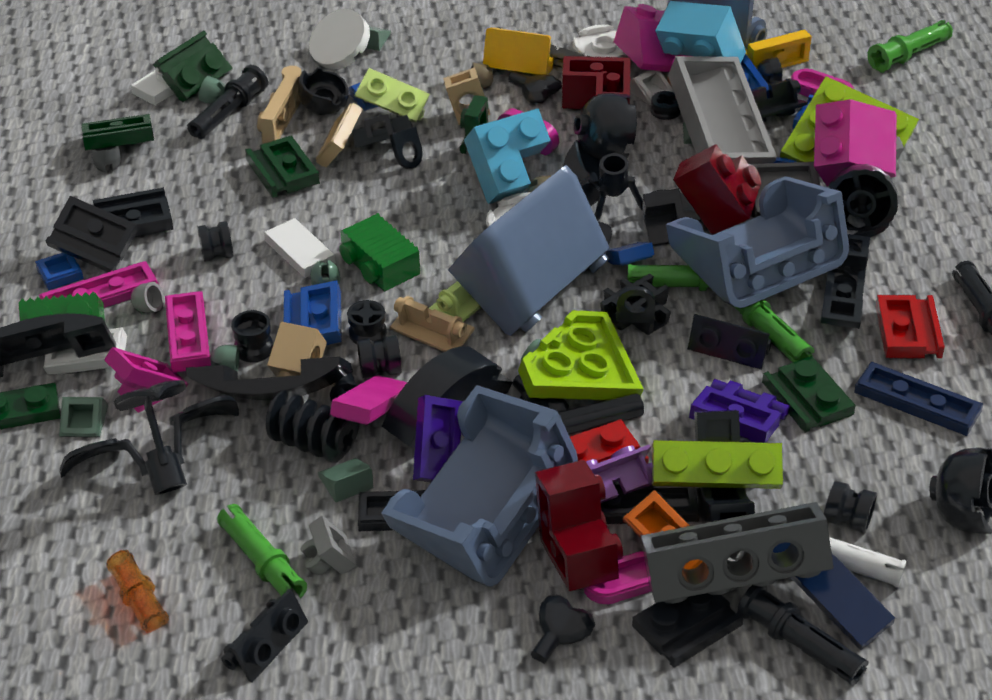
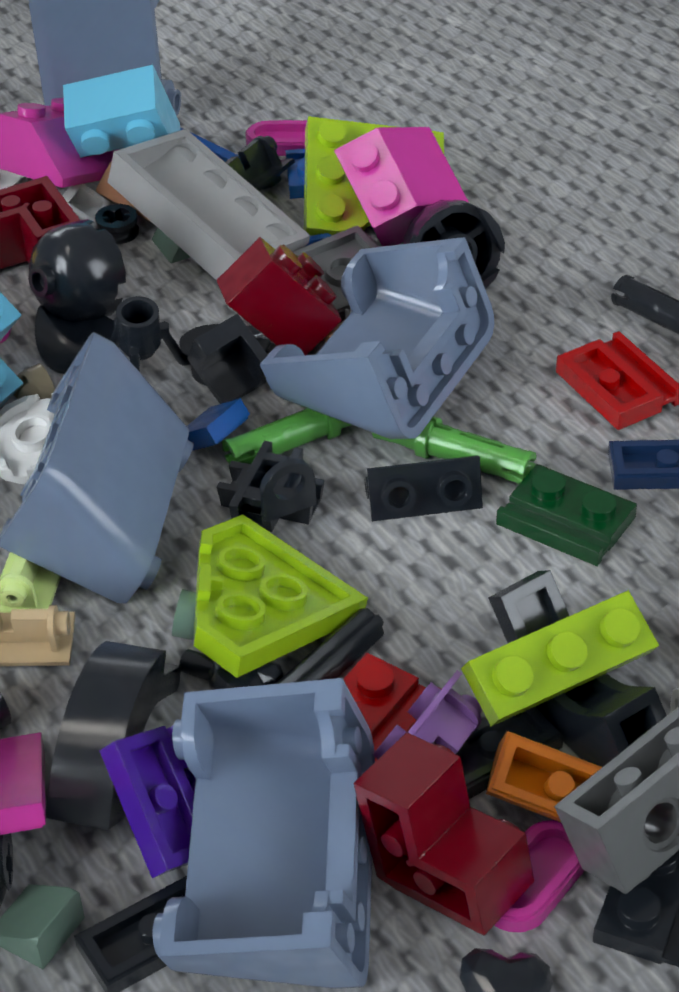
camera: 30 degrees left, 0 degrees up
(757, 413) = (485, 568): dark purple plate -> none
(770, 70) = (221, 134): black hinge -> none
(788, 48) = (216, 109): yellow panel -> none
(846, 286) = (512, 373): black slope -> none
(901, 48) = (350, 62): bright green pin -> none

